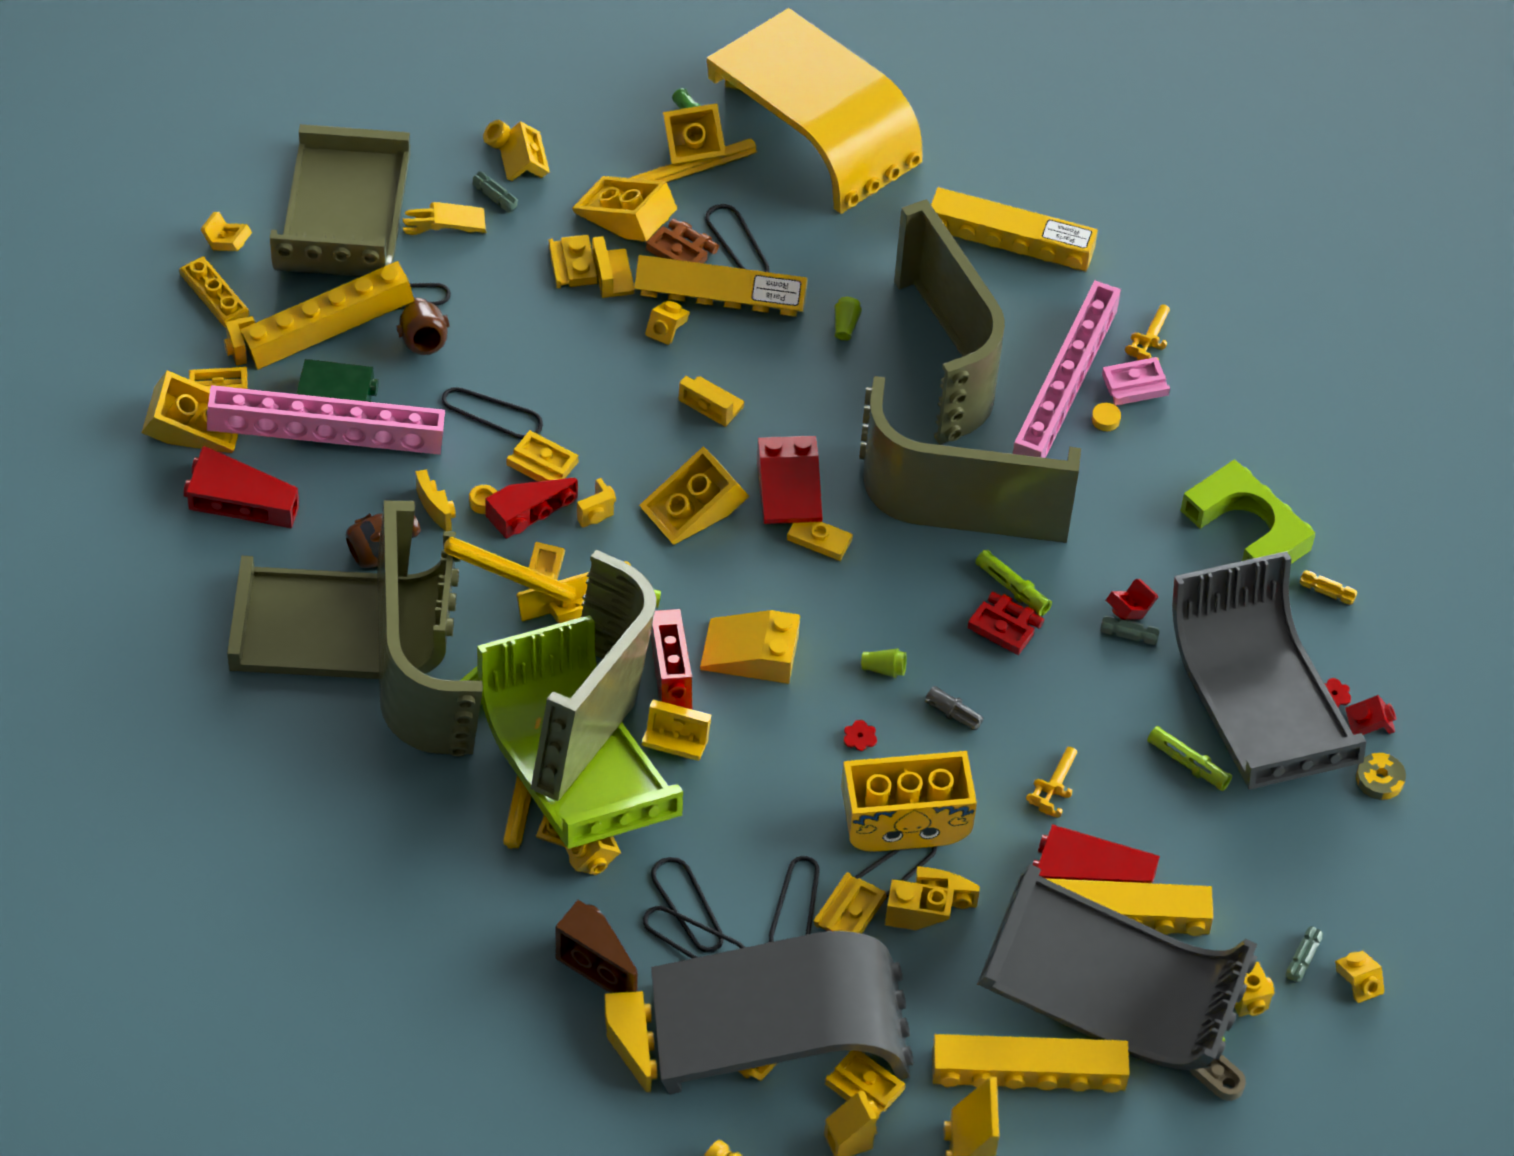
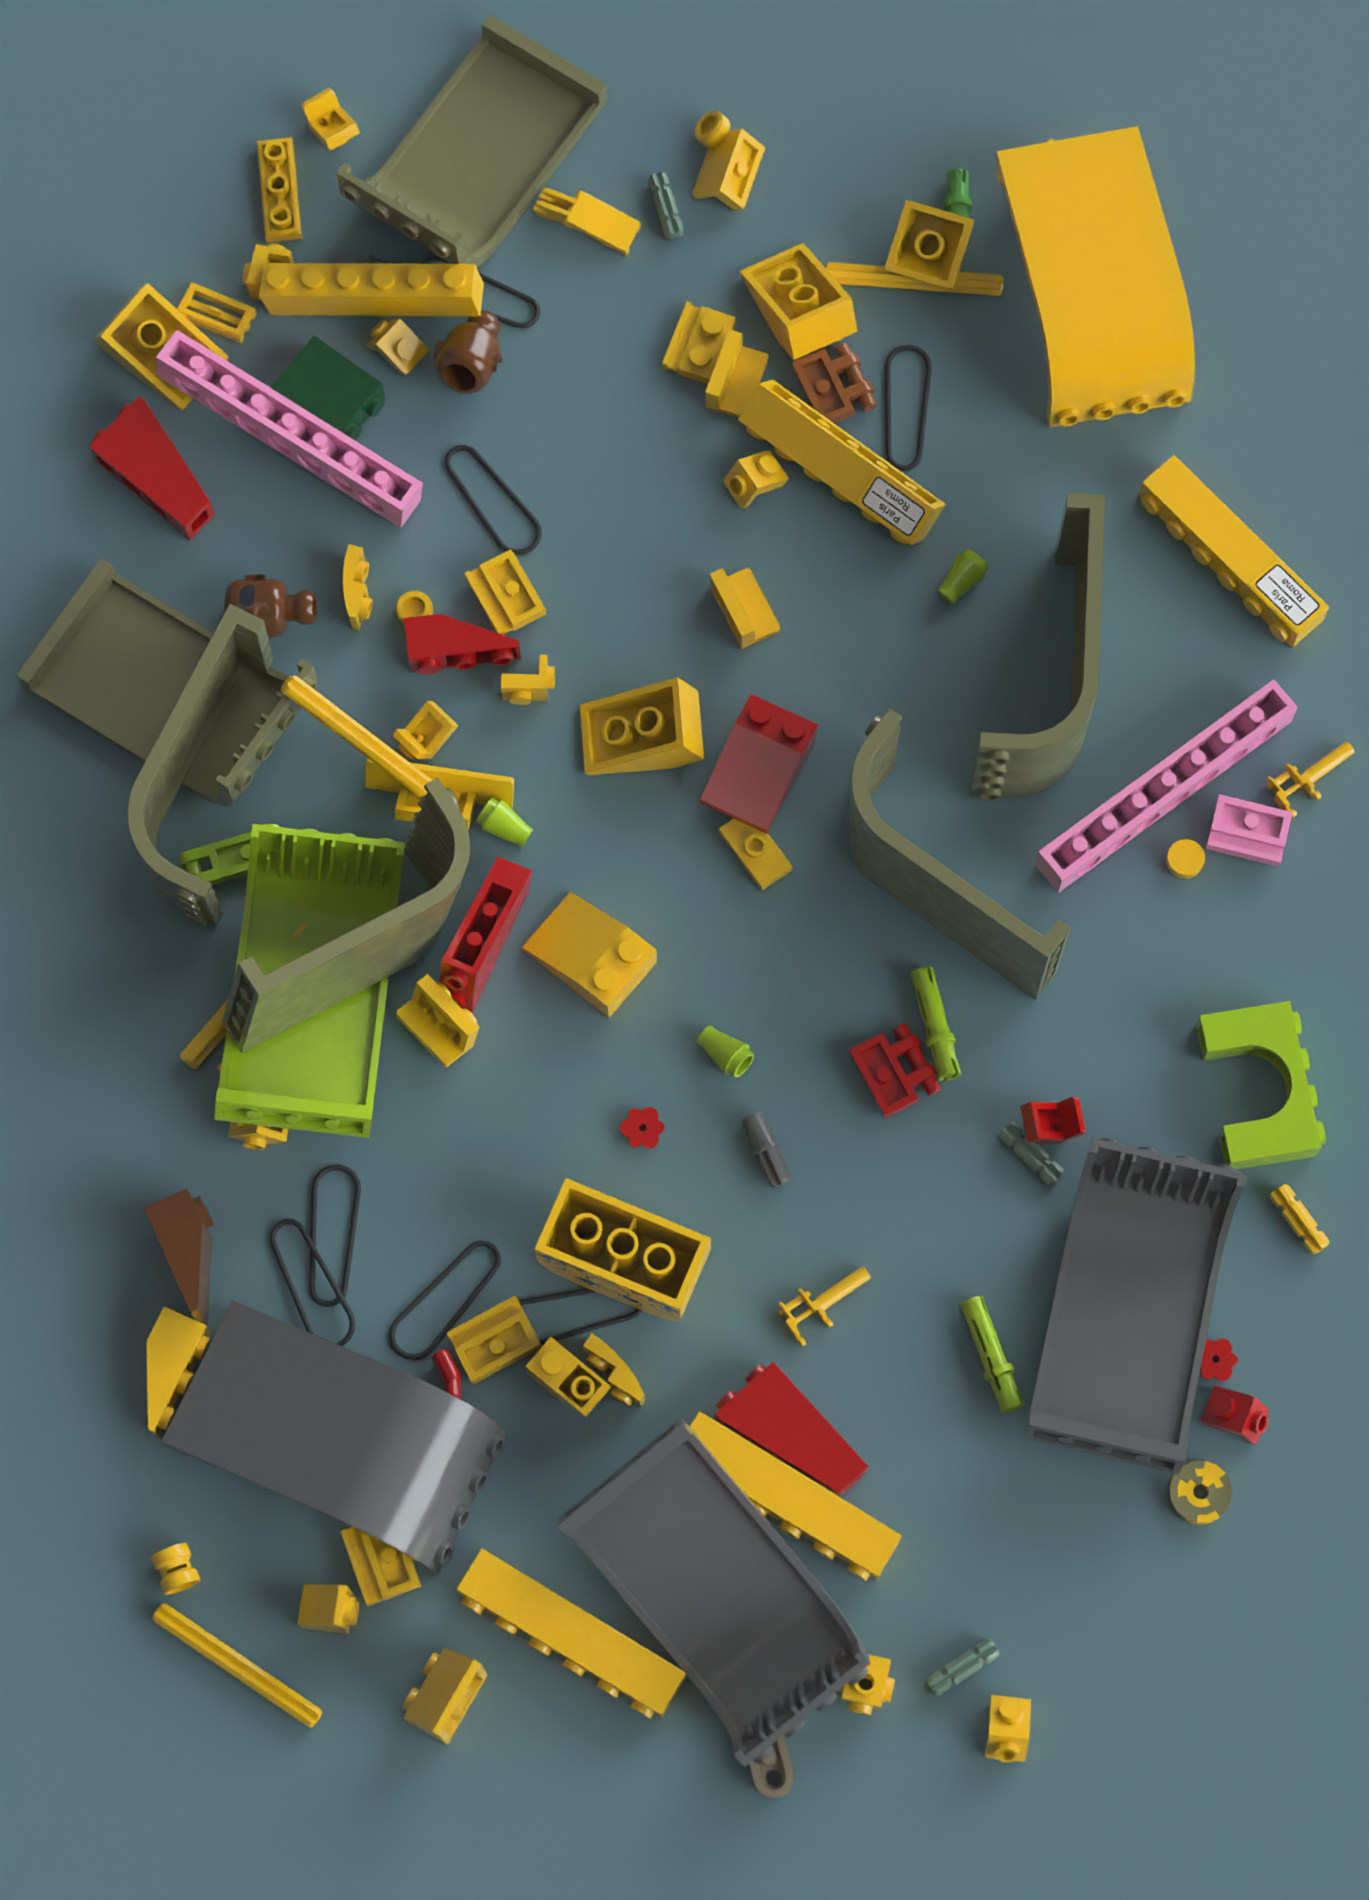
camera: 35 degrees right, 20 degrees up
(363, 345) = (397, 345): none -> yellow bracket

